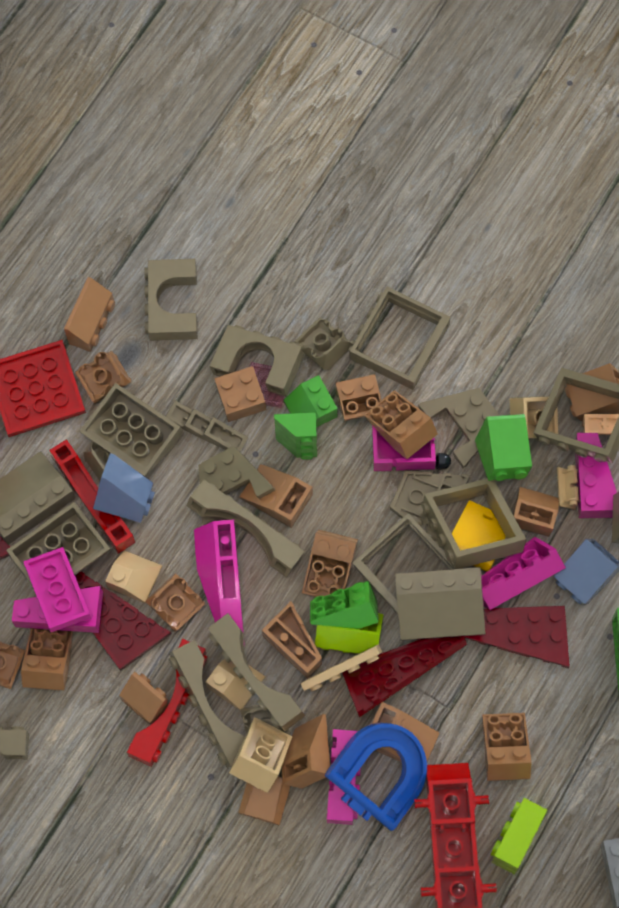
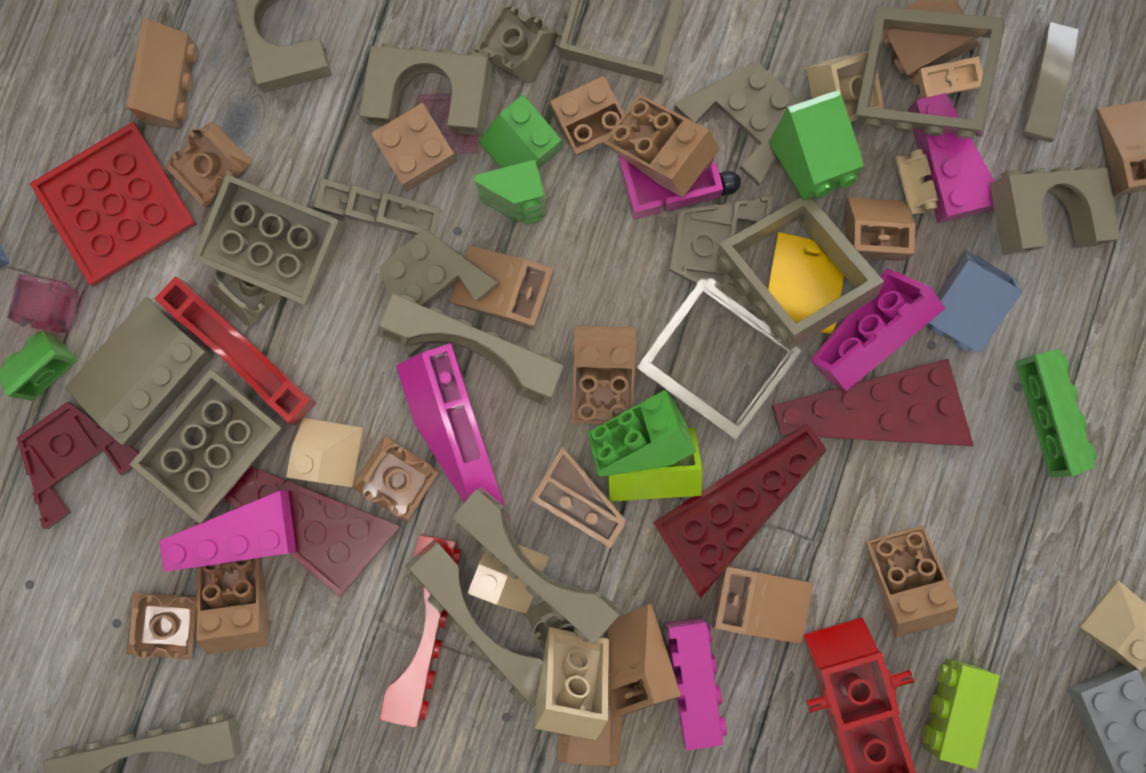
camera: 15 degrees left, 15 degrees up
(57, 589) = (216, 514): dark pink plate -> none
(123, 491) = (279, 336): sand blue slope -> none
(143, 698) = (385, 634): medium nougat slope -> none
(334, 672) = (666, 520): tan plate -> none
(406, 789) = (713, 652): blue piece -> none
(440, 603) = (780, 404): dark tan slope -> none

